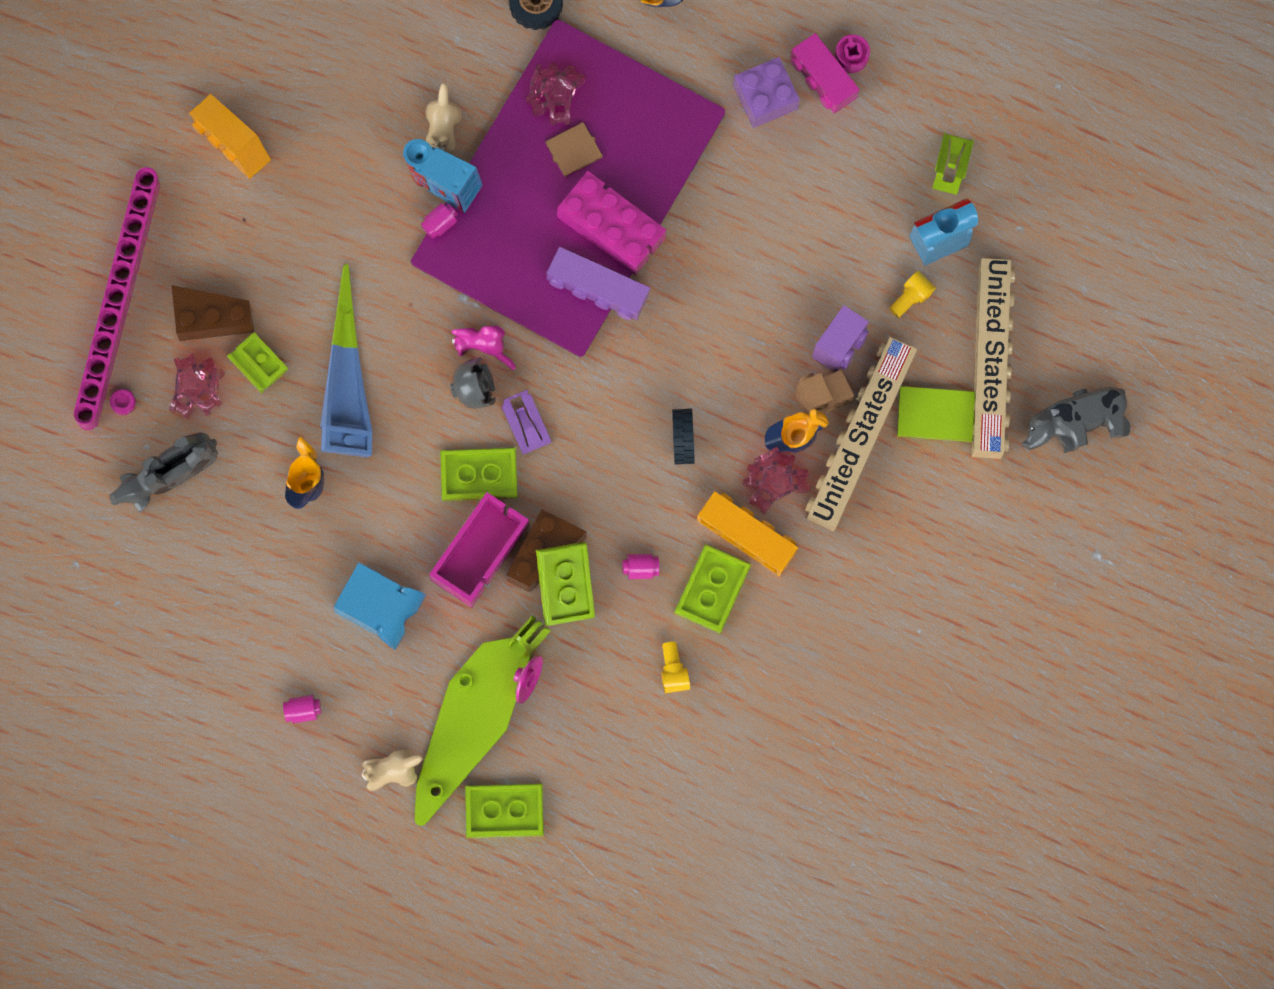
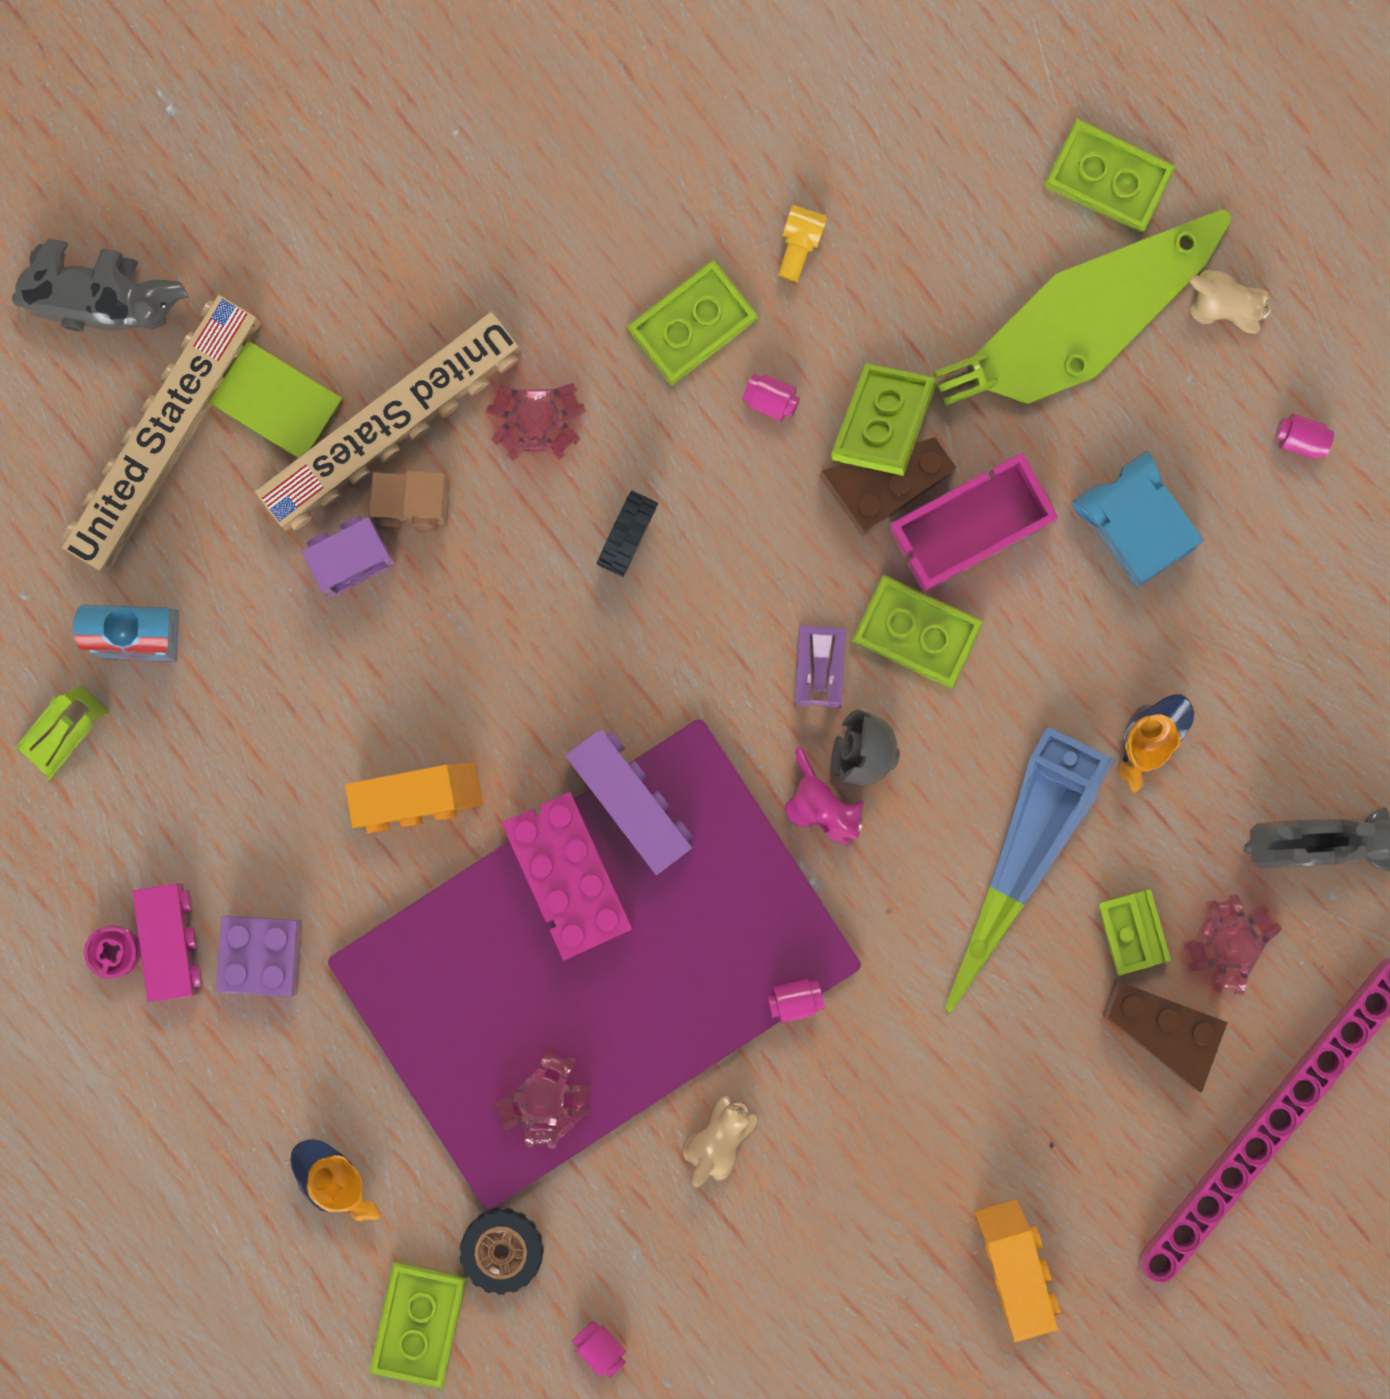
camera: 145 degrees left, 10 degrees up
(122, 402) = (1336, 972): dark pink tile -> none
(442, 174) = (762, 1059): dark azure piece -> none
(527, 678) = (999, 322): dark pink dish -> none
(574, 149) = (561, 1010): medium nougat piece -> none
(725, 224) = (412, 796): none -> light orange wedge
(747, 533) = (610, 367): light orange brick -> none
(795, 431) = (478, 466): light orange hair -> none
(916, 290) = (208, 578): yellow pin -> none

